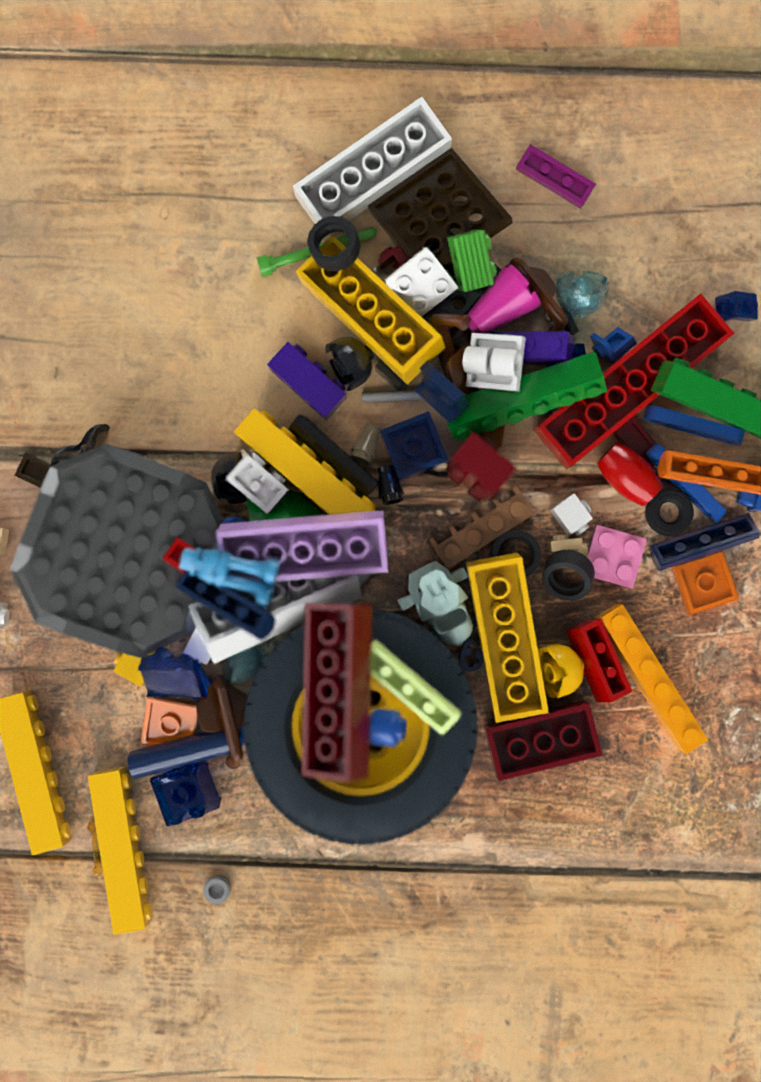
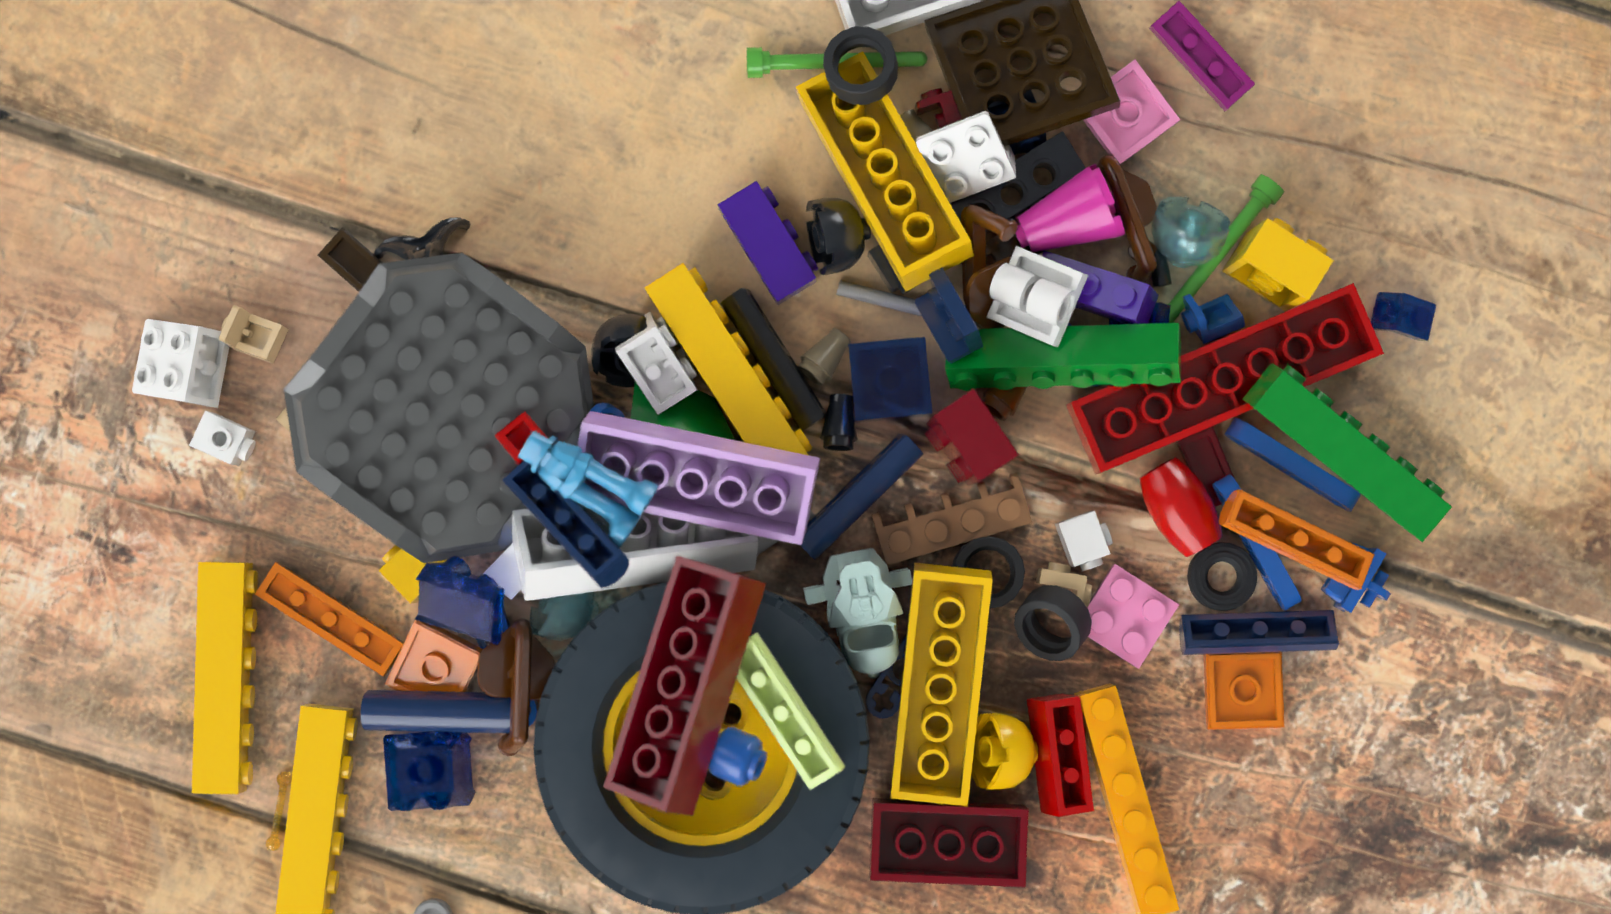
camera: 10 degrees right, 0 degrees up
(91, 712) = (330, 618): none -> orange plate
(416, 528) = (860, 494): none -> dark blue brick
(472, 260) = (1045, 145): bright green brick -> none
(526, 230) = (1140, 118): none -> bright pink plate
(622, 254) = (1263, 194): none -> bright green piece
(648, 294) = (1278, 264): none -> yellow brick

